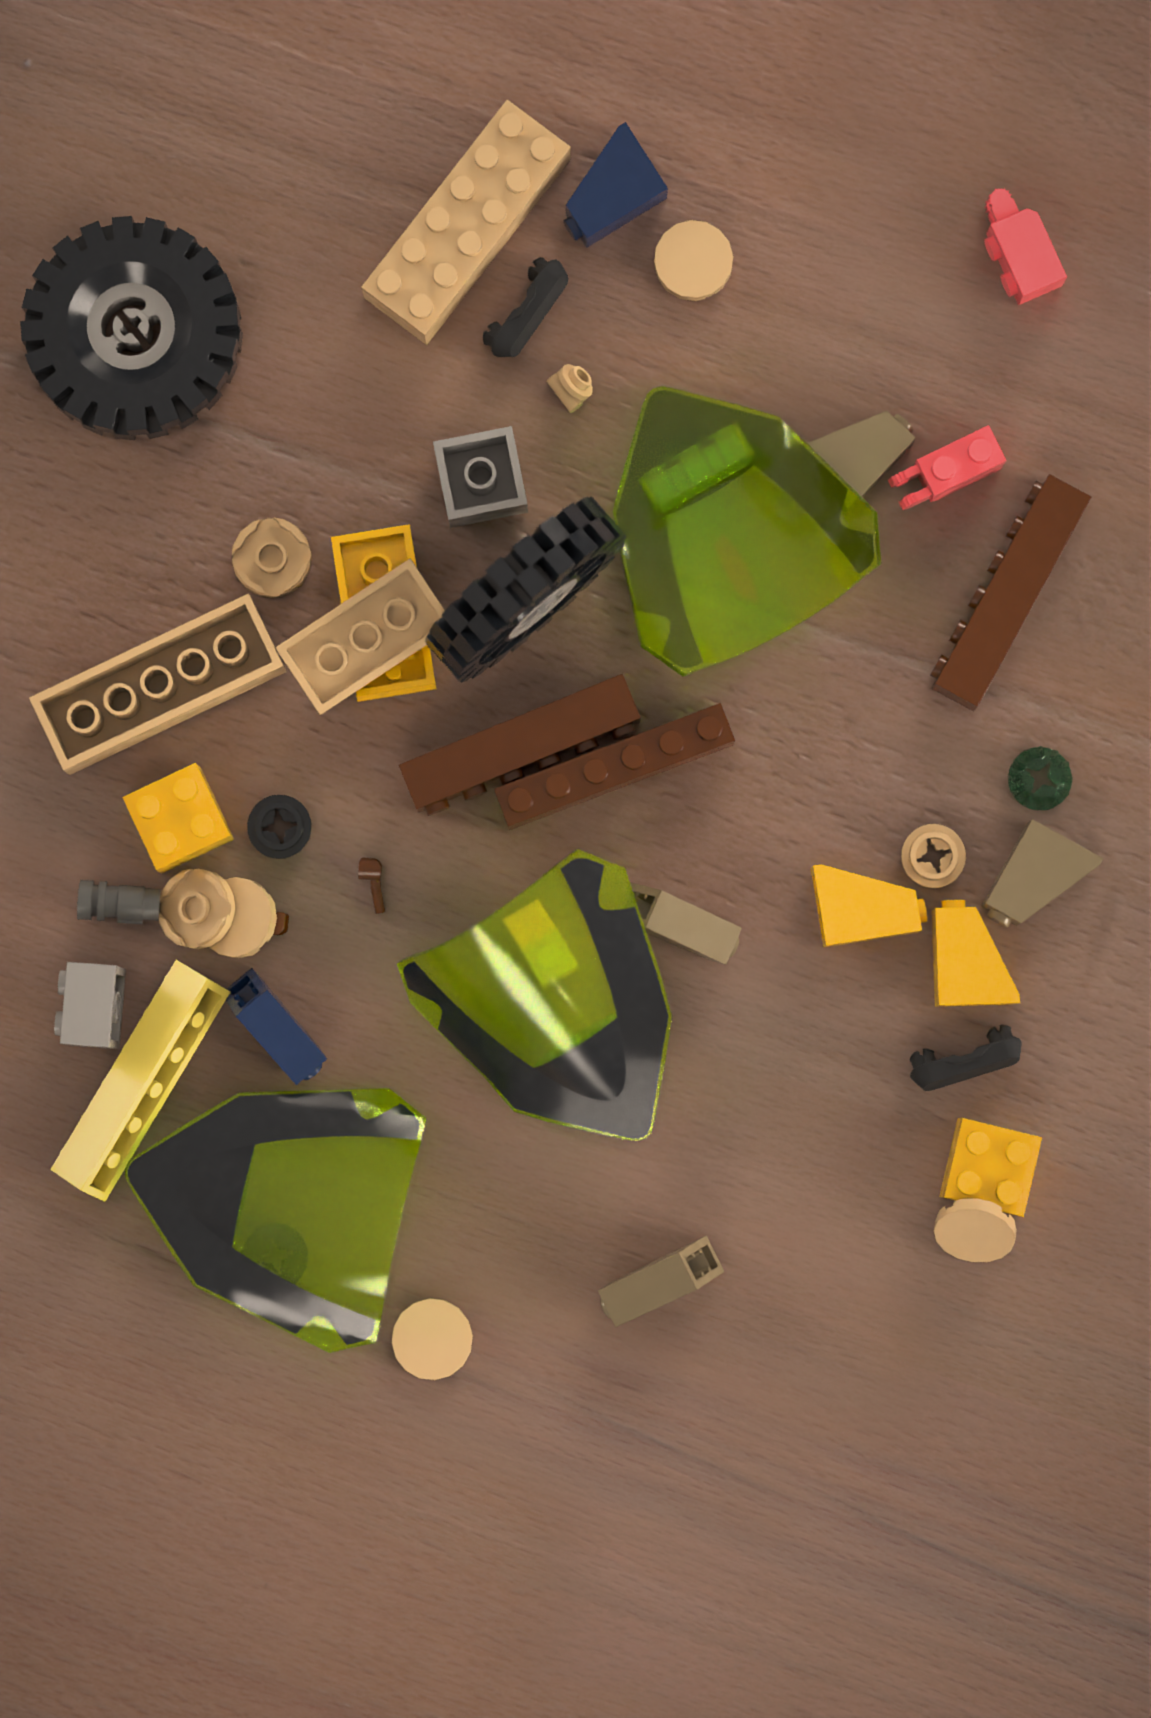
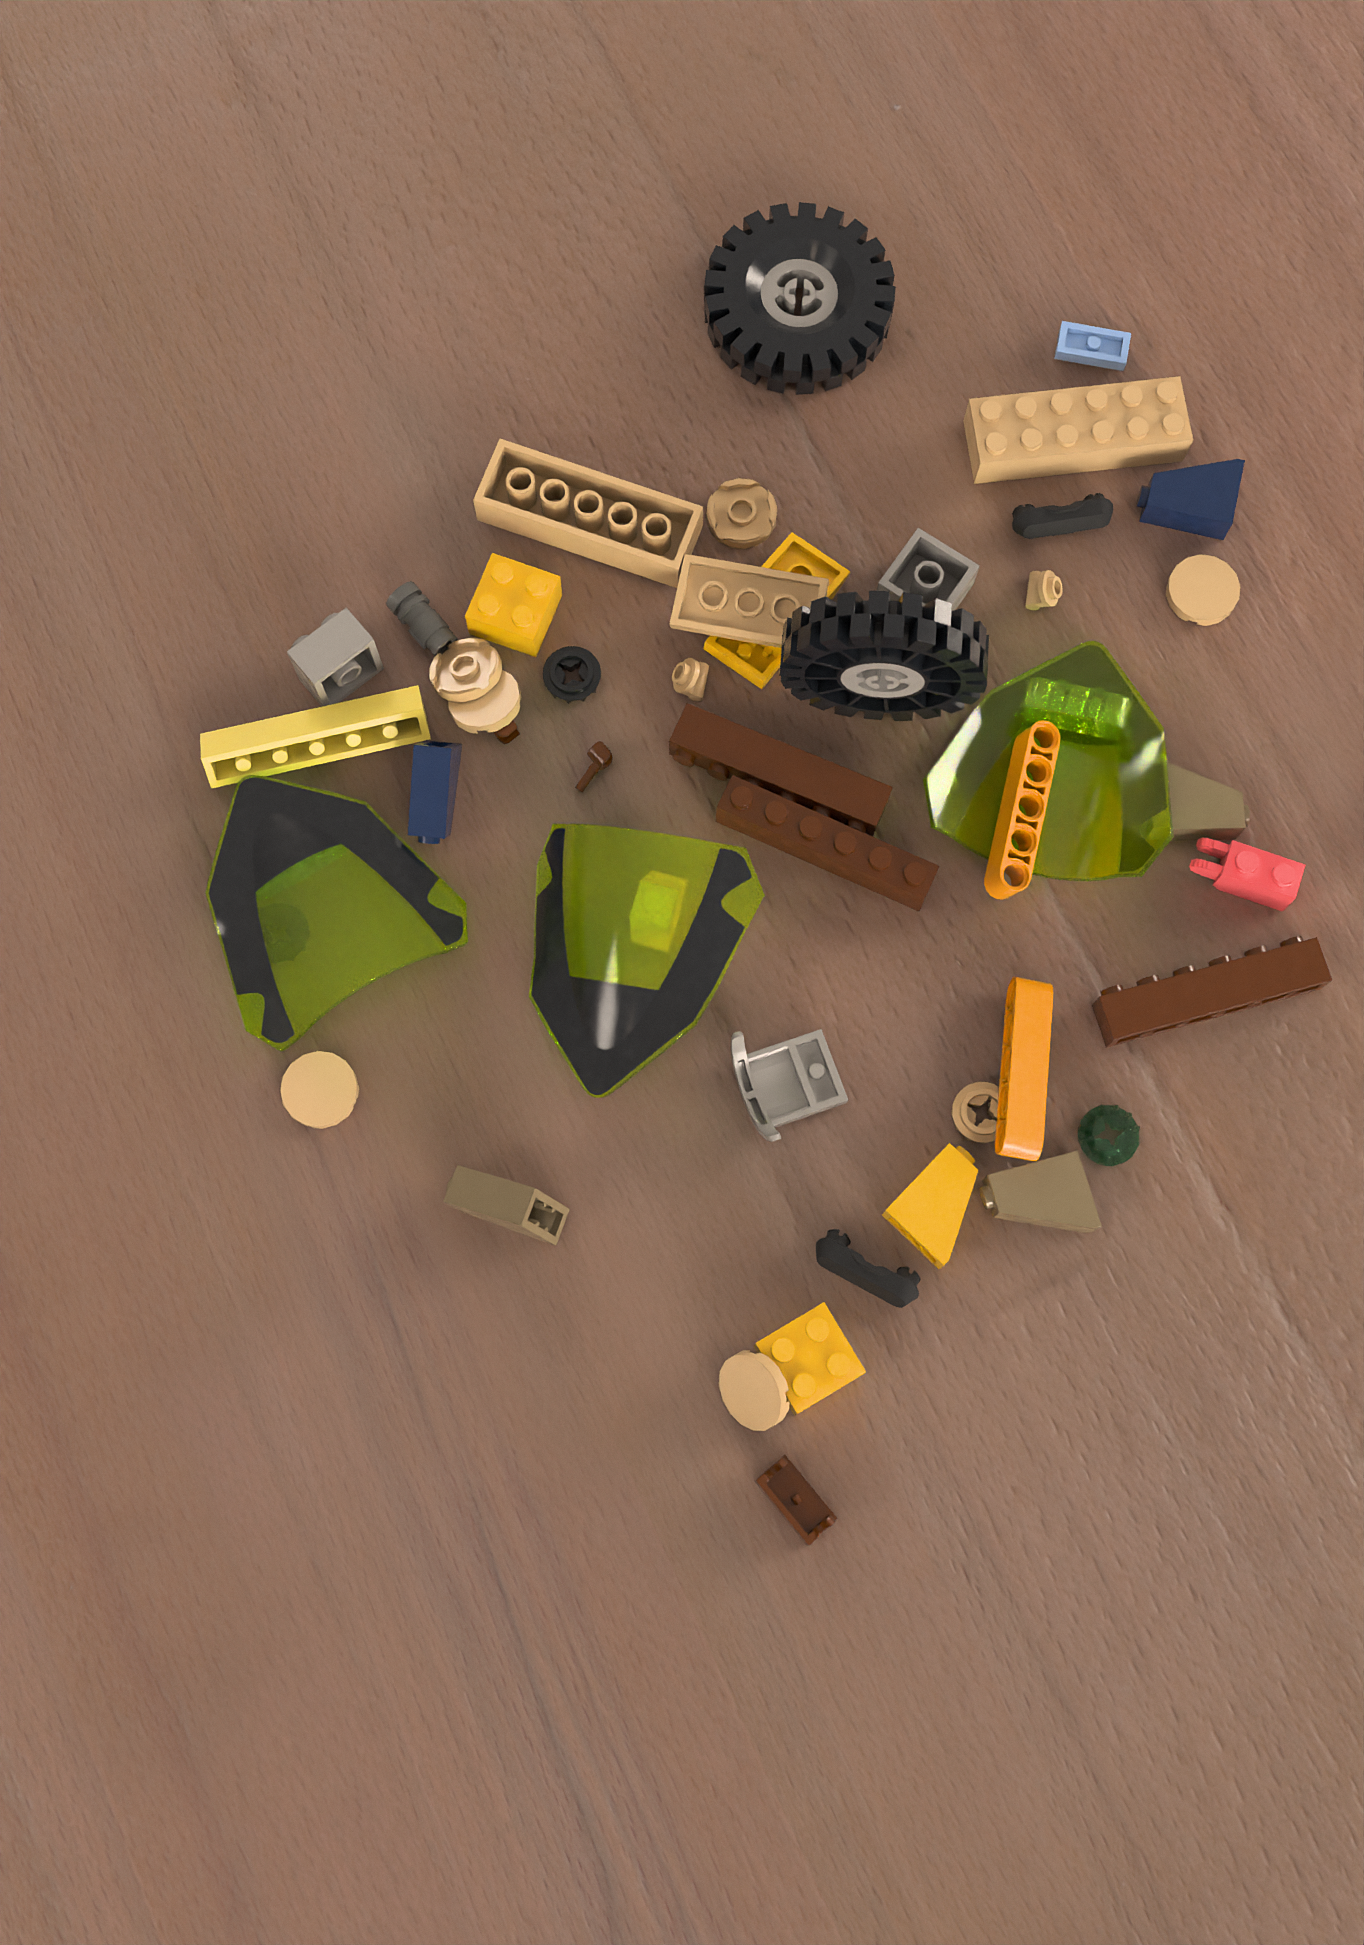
camera: 45 degrees right, 10 degrees down
(374, 737) = (690, 678): none -> tan plate
(405, 131) = (1092, 346): none -> light blue plate
(686, 924) = (766, 986): dark tan slope -> none
(736, 572) = (1011, 821): none -> light orange beam
(770, 980) = (786, 1081): none -> light grey piece
(863, 908) = (899, 1097): yellow slope -> none
(933, 794) = (1024, 1069): none -> light orange beam
(1079, 1274) = (796, 1500): none -> reddish brown hinge

